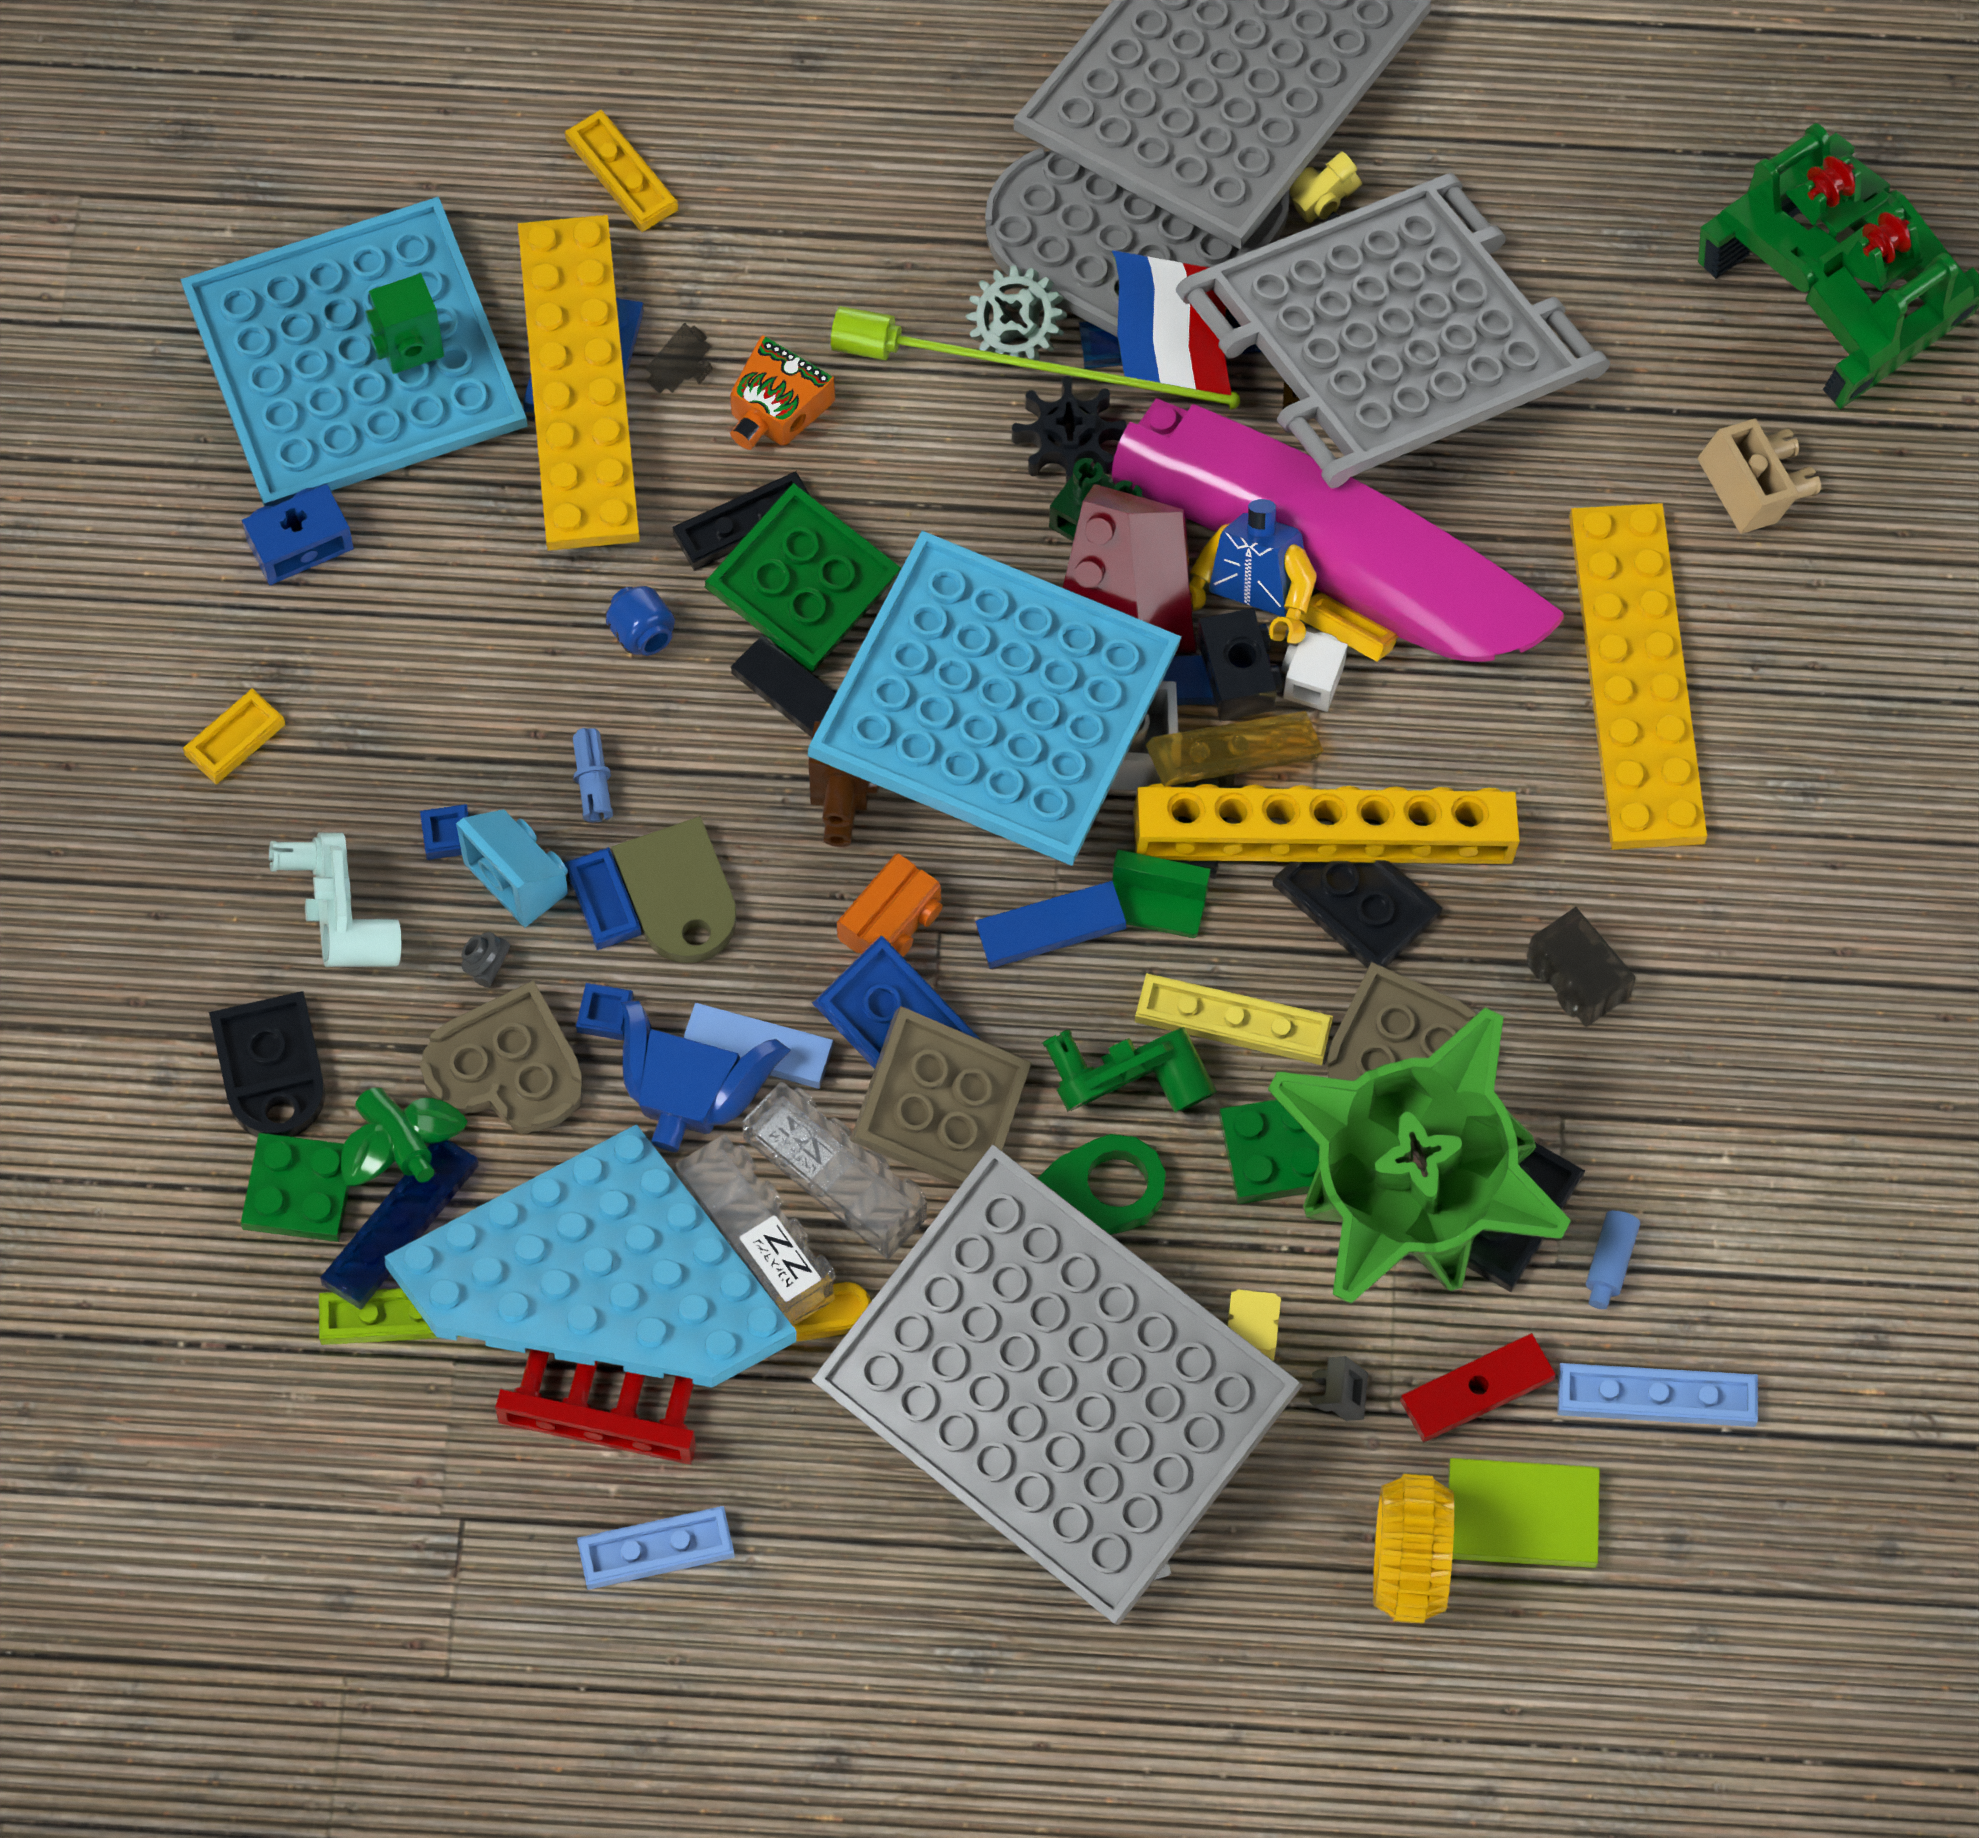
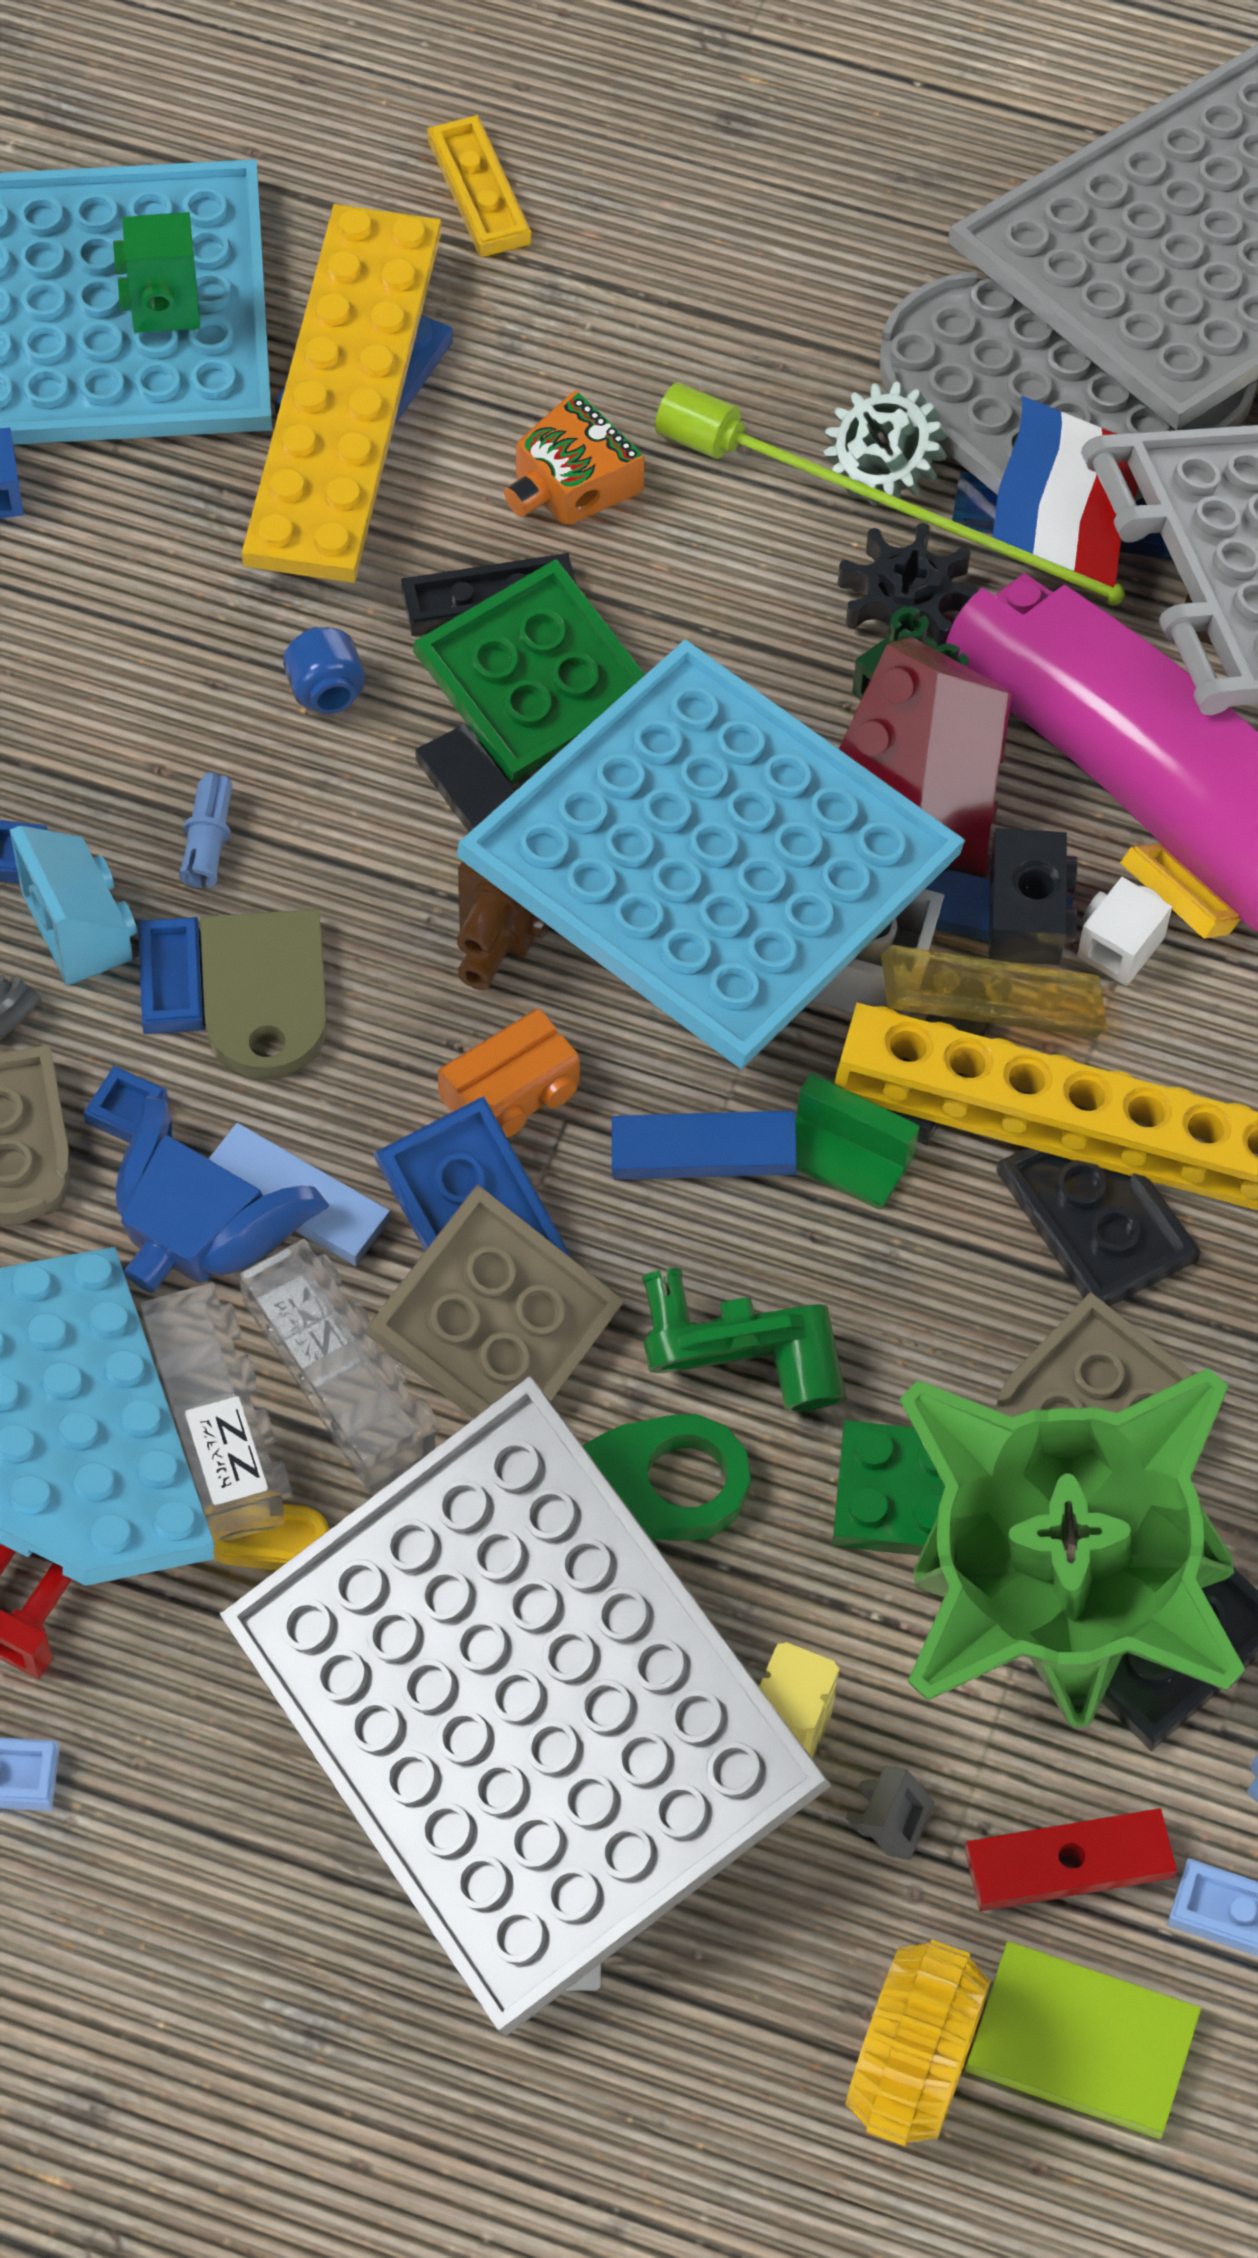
camera: 15 degrees right, 5 degrees down
(680, 360) = (475, 401): clear smoke piece -> none
(1234, 1019) = (898, 1318): light yellow tile -> none
(1258, 566) = (1089, 786): torso -> none

